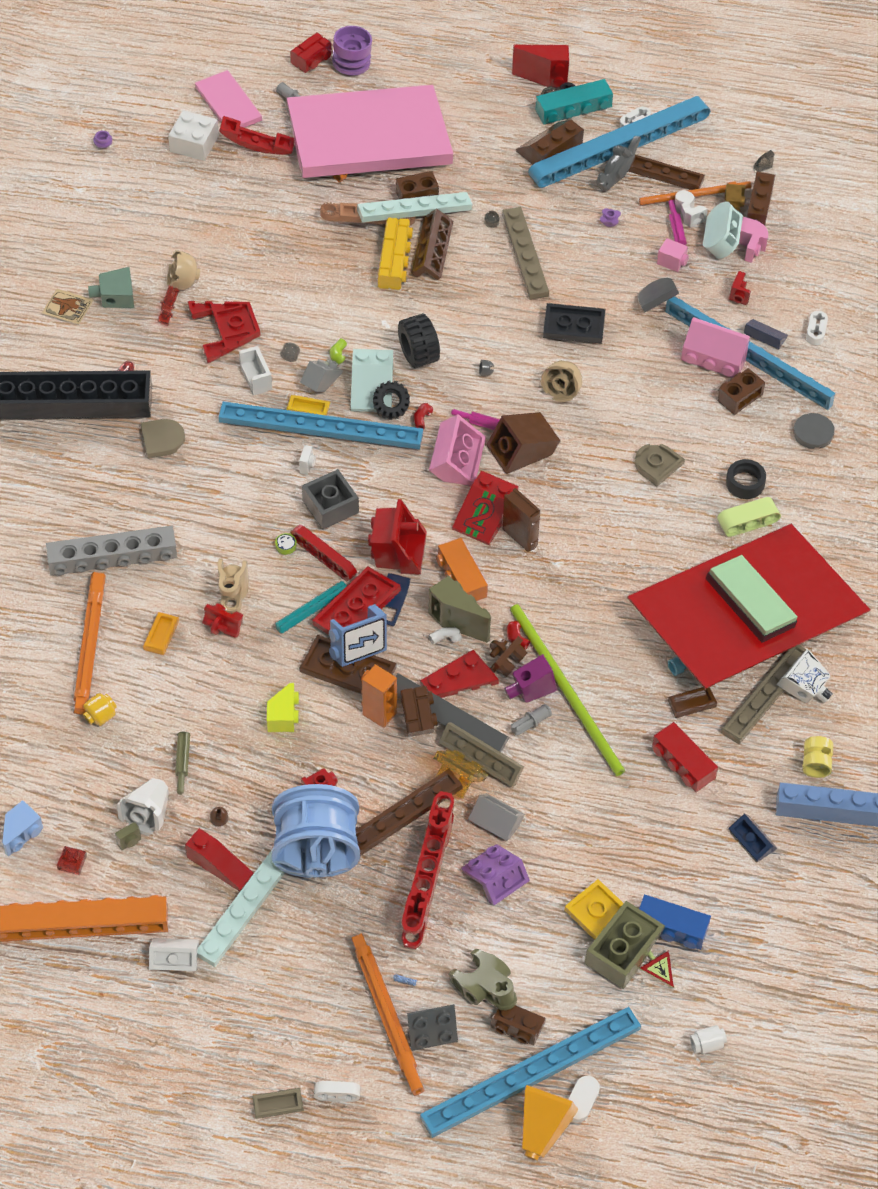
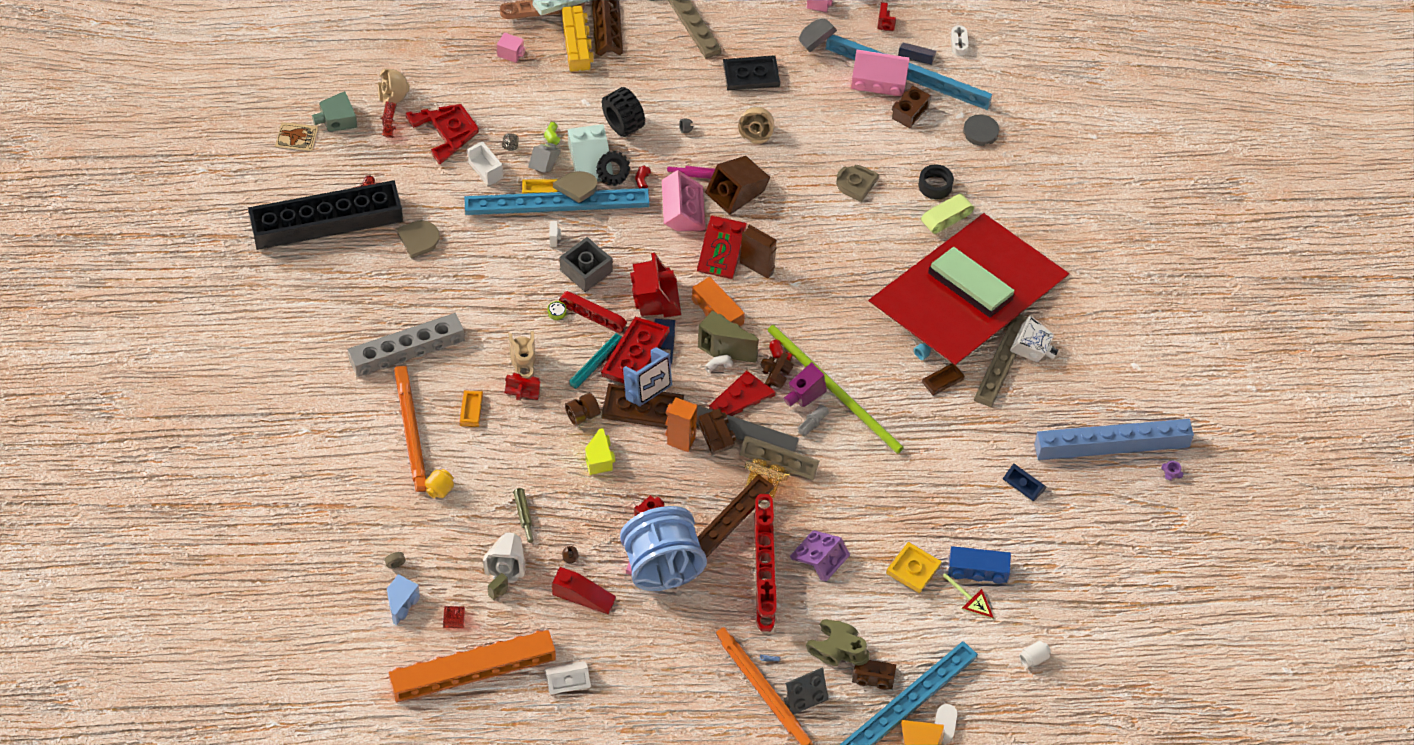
camera: 15 degrees left, 0 degrees up
(26, 784) = (395, 560): none -> dark tan tile
(240, 912) = (614, 628): light aqua plate -> none
(279, 657) = (583, 408): none -> reddish brown wheel
(320, 251) = (510, 47): none -> bright pink brick
(346, 411) = (577, 185): none -> dark tan tile
(496, 816) = (807, 507): light grey brick -> none
(623, 944) = (945, 591): olive slope -> none
(684, 757) = (950, 426): red brick -> none
(817, 757) = (1061, 404): light yellow wheel -> none

